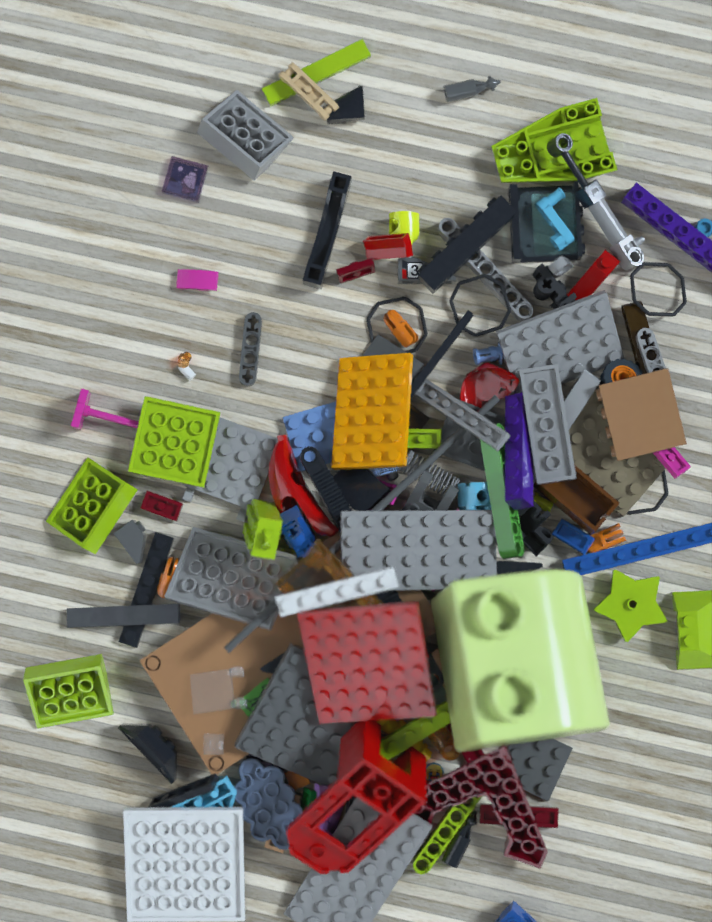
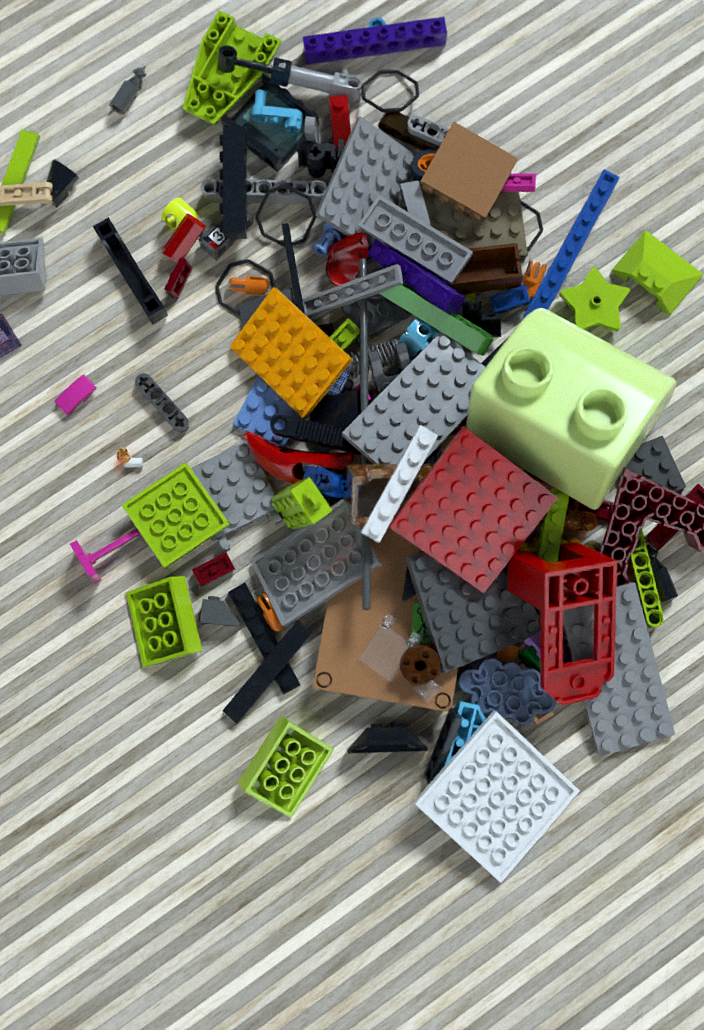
camera: 50 degrees left, 5 degrees down
(224, 724) = (420, 664): none -> reddish brown plate

